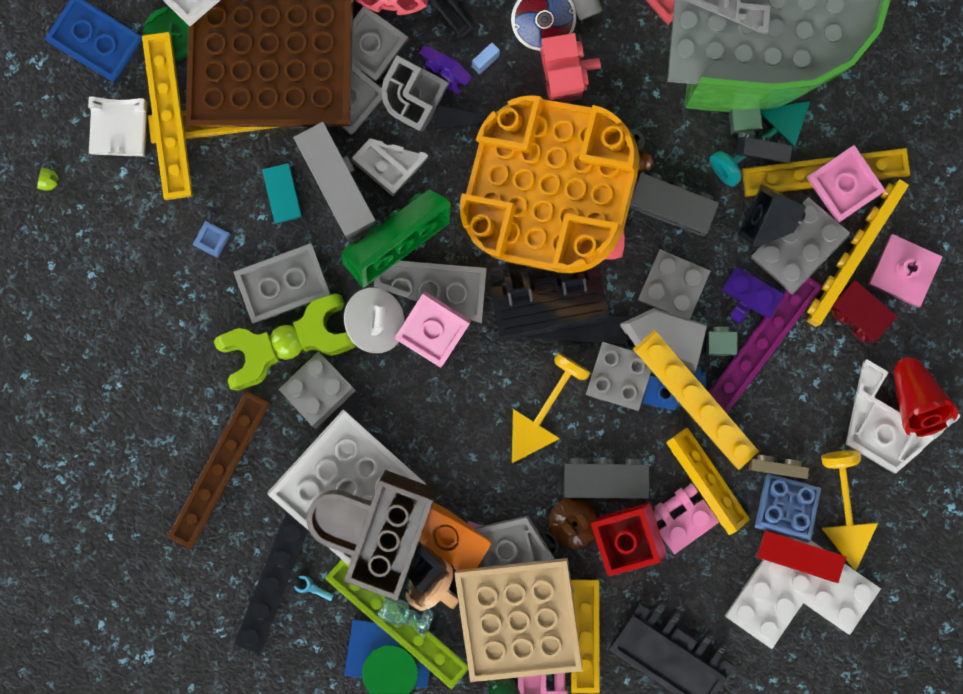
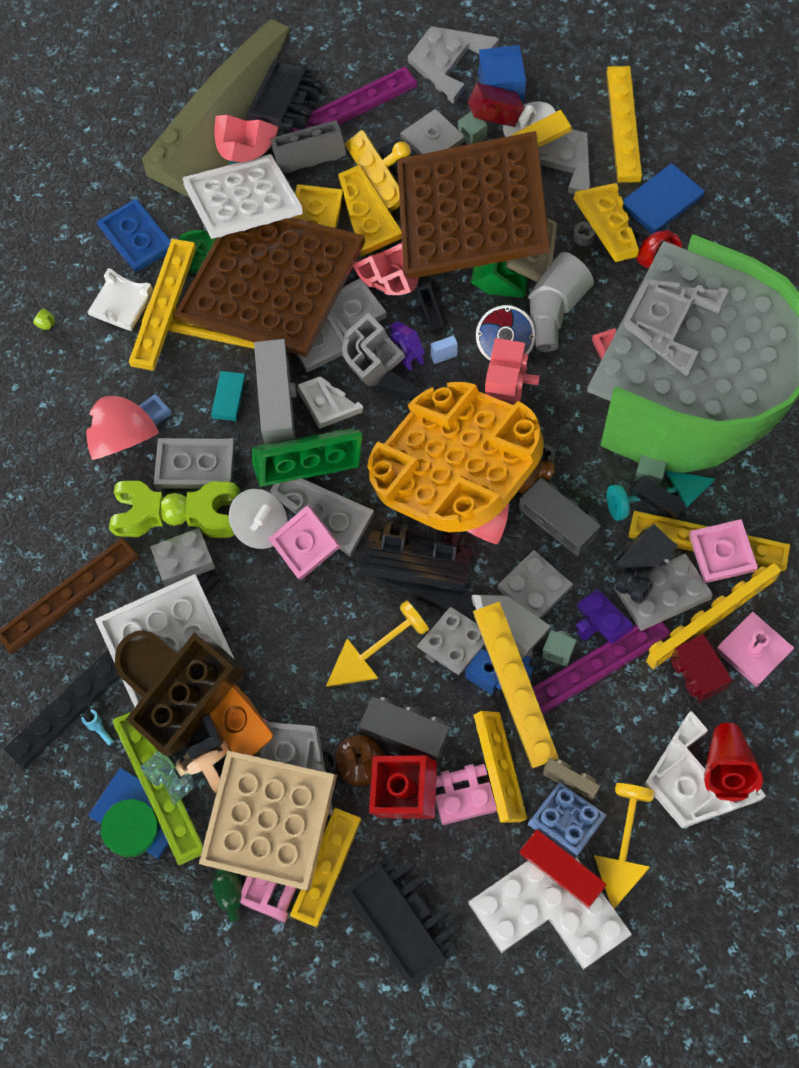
camera: 20 degrees right, 20 degrees down
(186, 276) = (117, 426): none -> coral brick
(776, 257) = (635, 586): none -> black wheel

